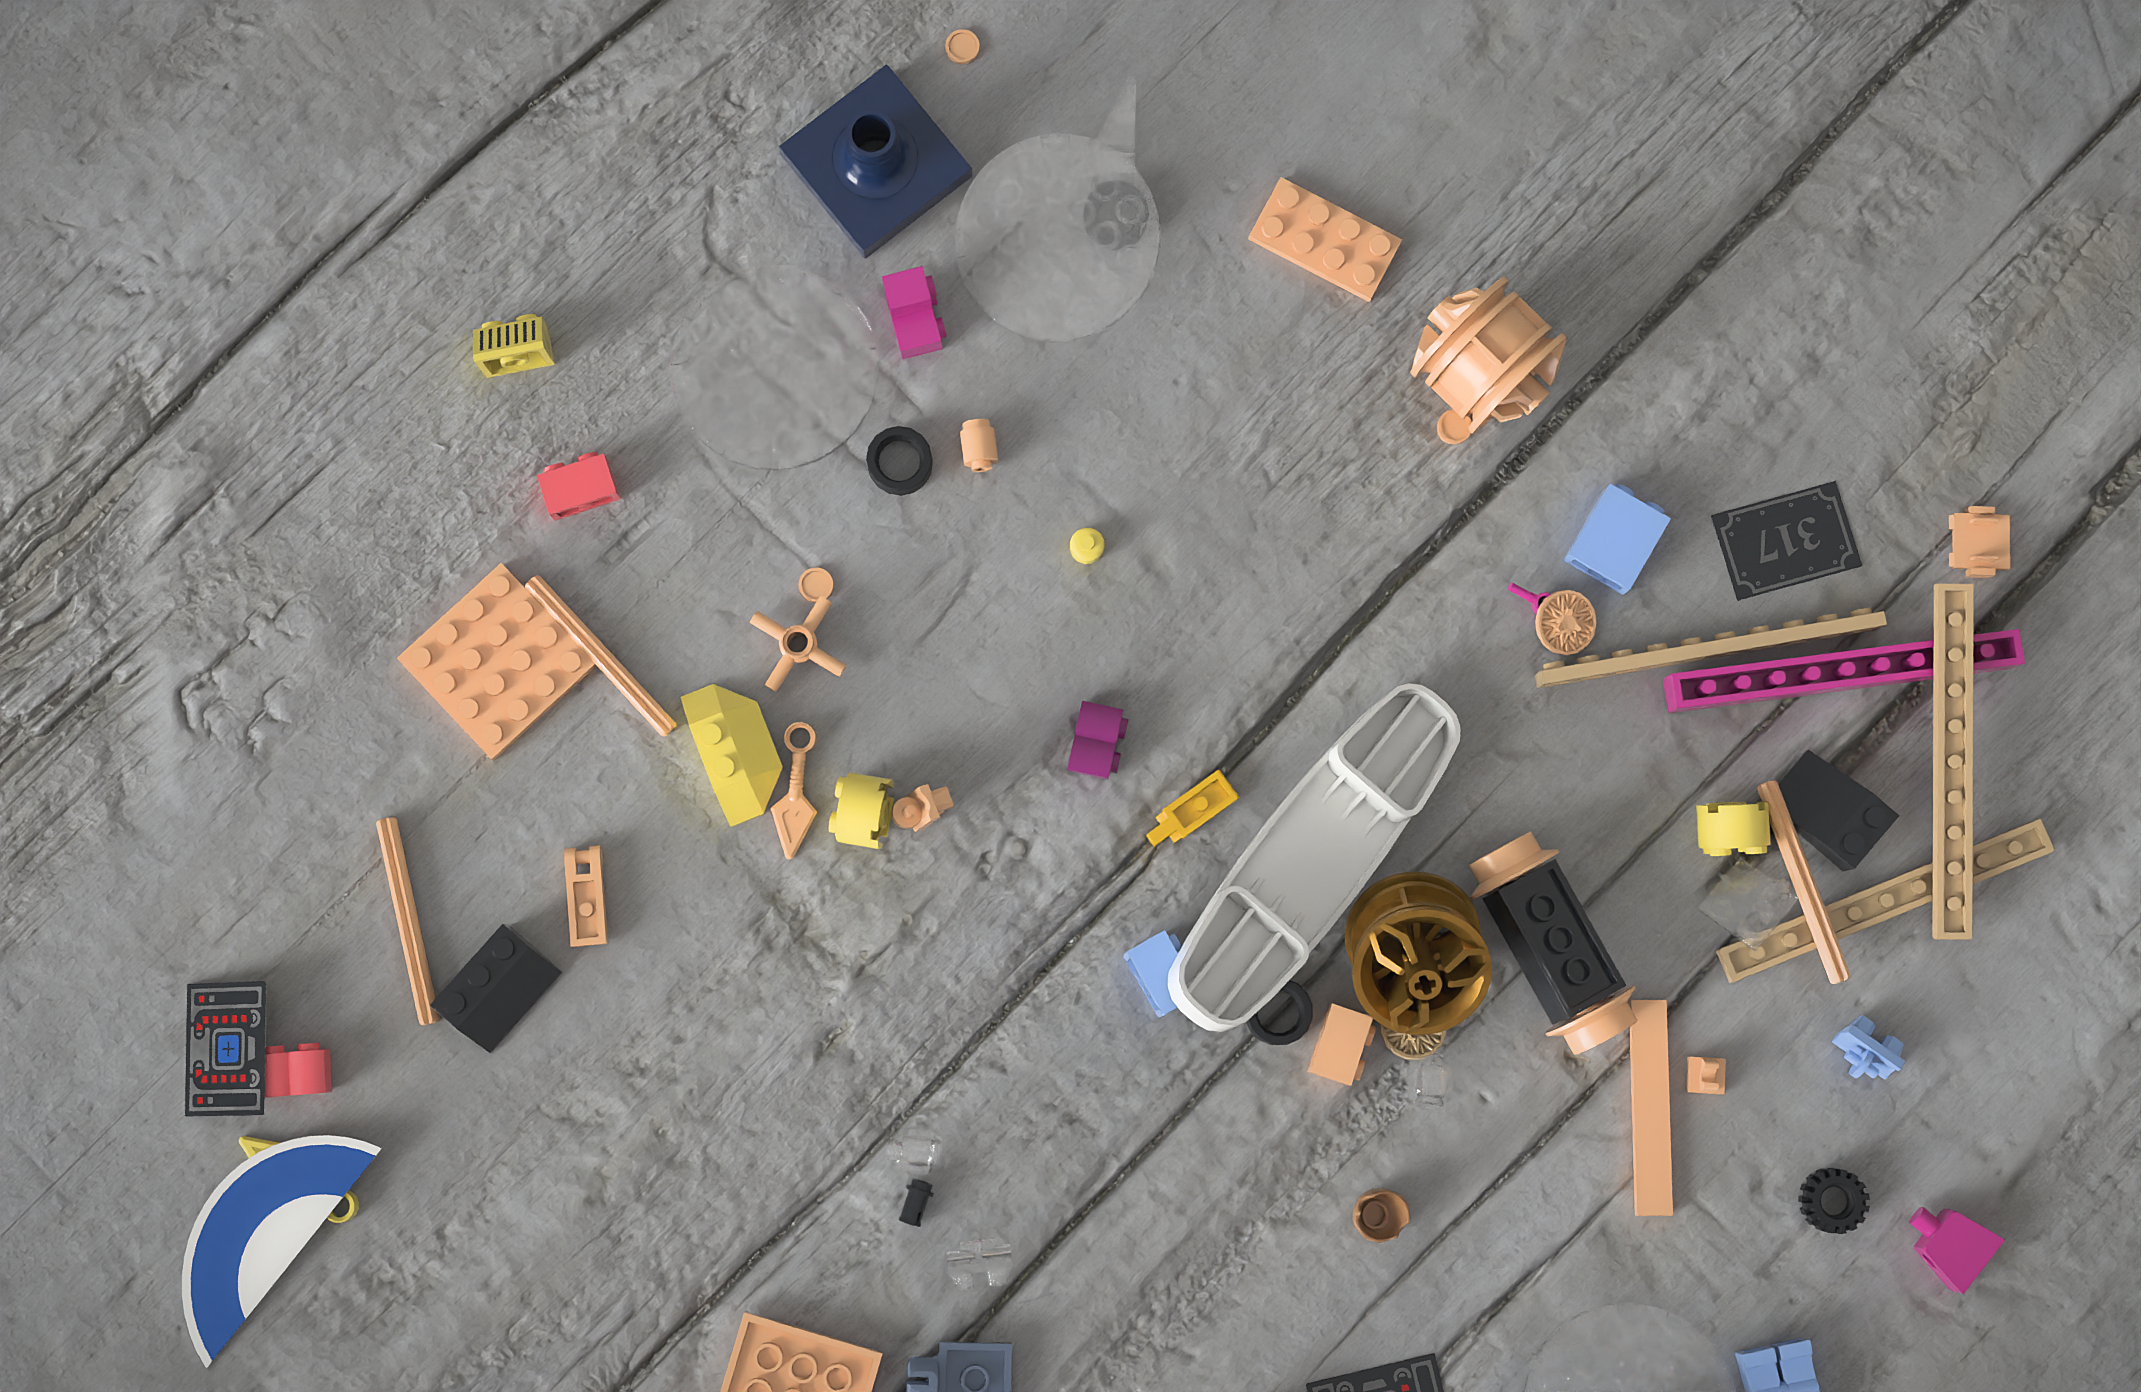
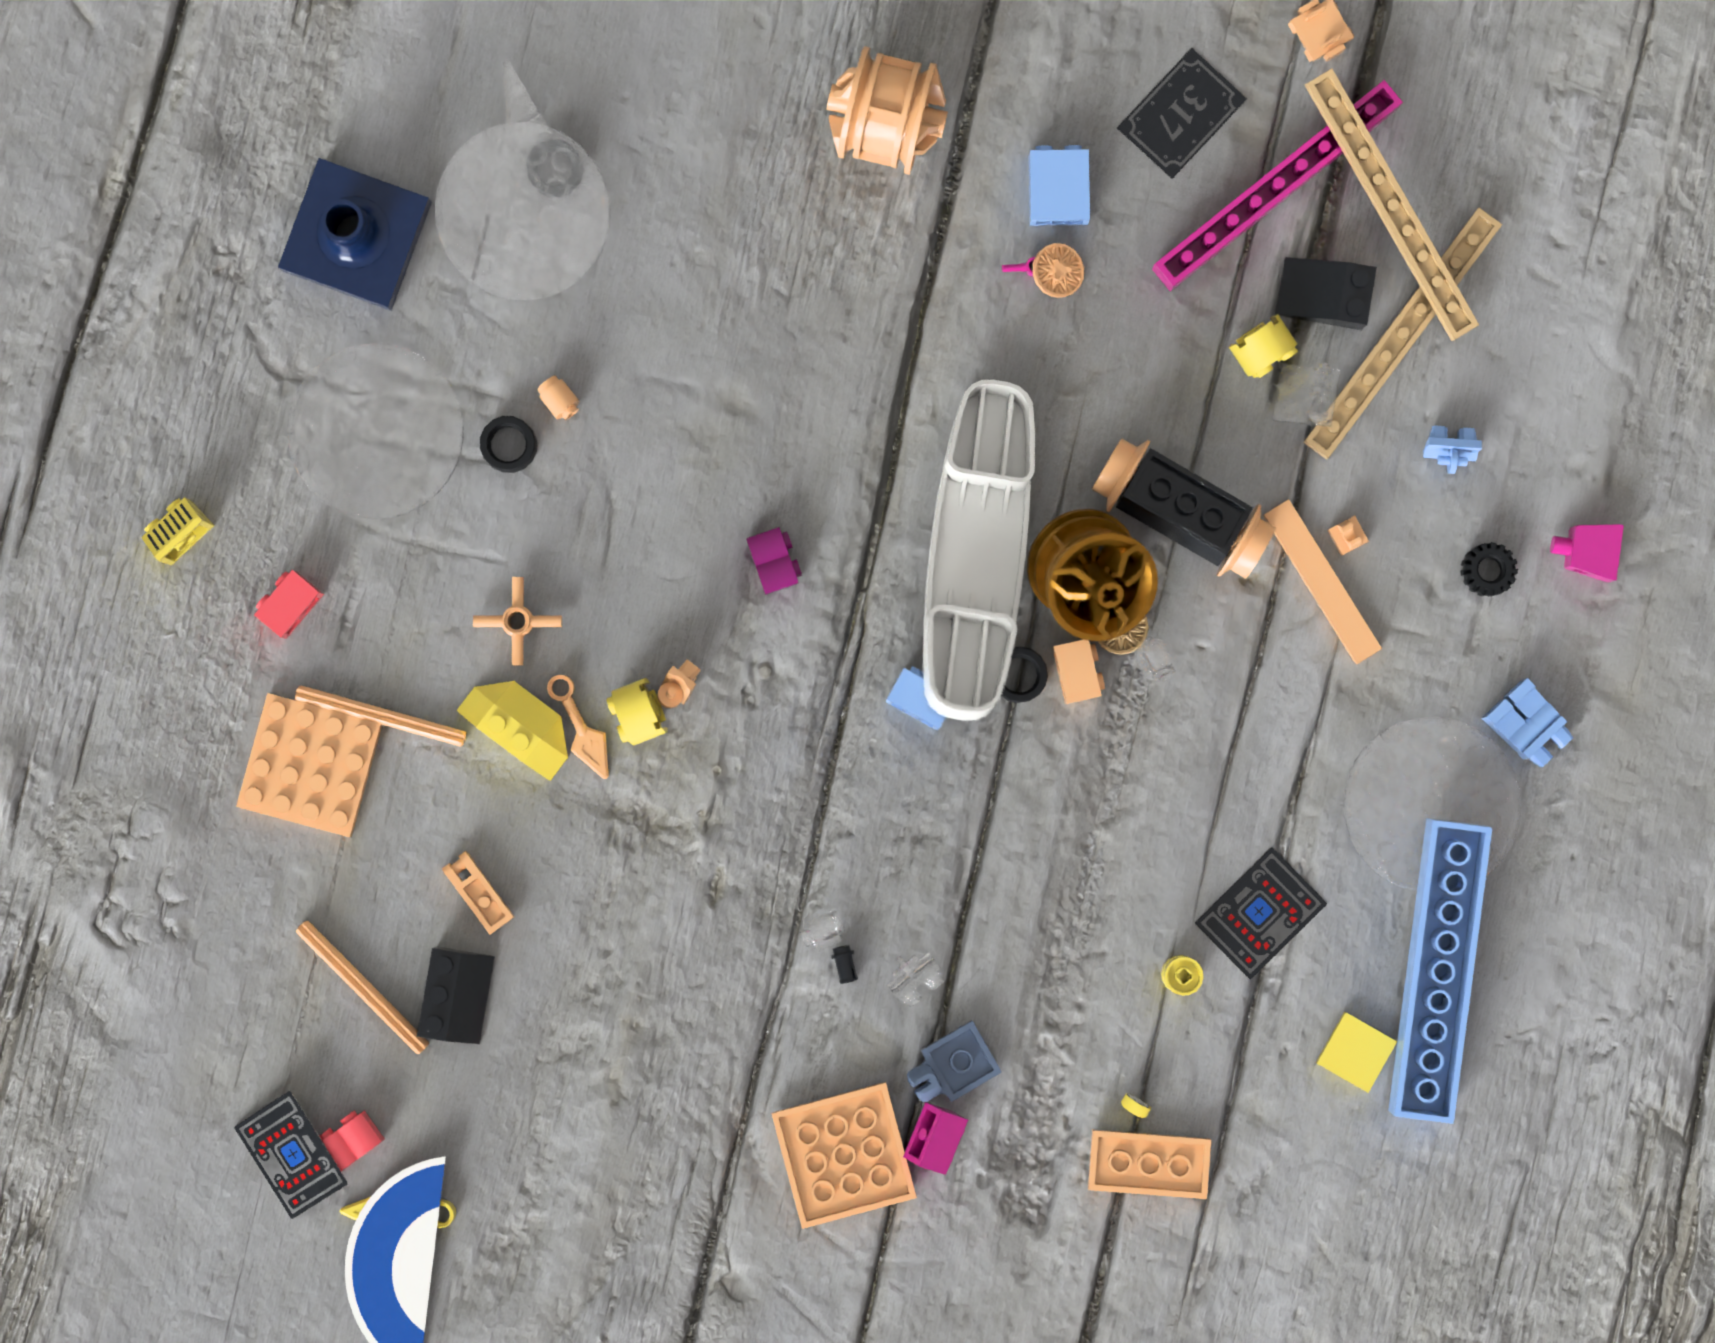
camera: 25 degrees left, 5 degrees up
(815, 583) = (502, 570): light nougat piece -> none
(910, 306) = (445, 324): dark pink brick -> none
(962, 46) = (365, 109): light nougat piece -> none
(1087, 545) = (681, 423): light yellow piece -> none
(1193, 809) = (872, 567): yellow hinge -> none
(1325, 239) = (717, 93): light nougat plate -> none
(1380, 1214) = (1176, 773): medium nougat hair -> none
(1453, 428) = (893, 177): light nougat piece -> none
(1724, 645) = (1180, 218): tan plate -> none
(1804, 883) = (1337, 356): light nougat axle -> none

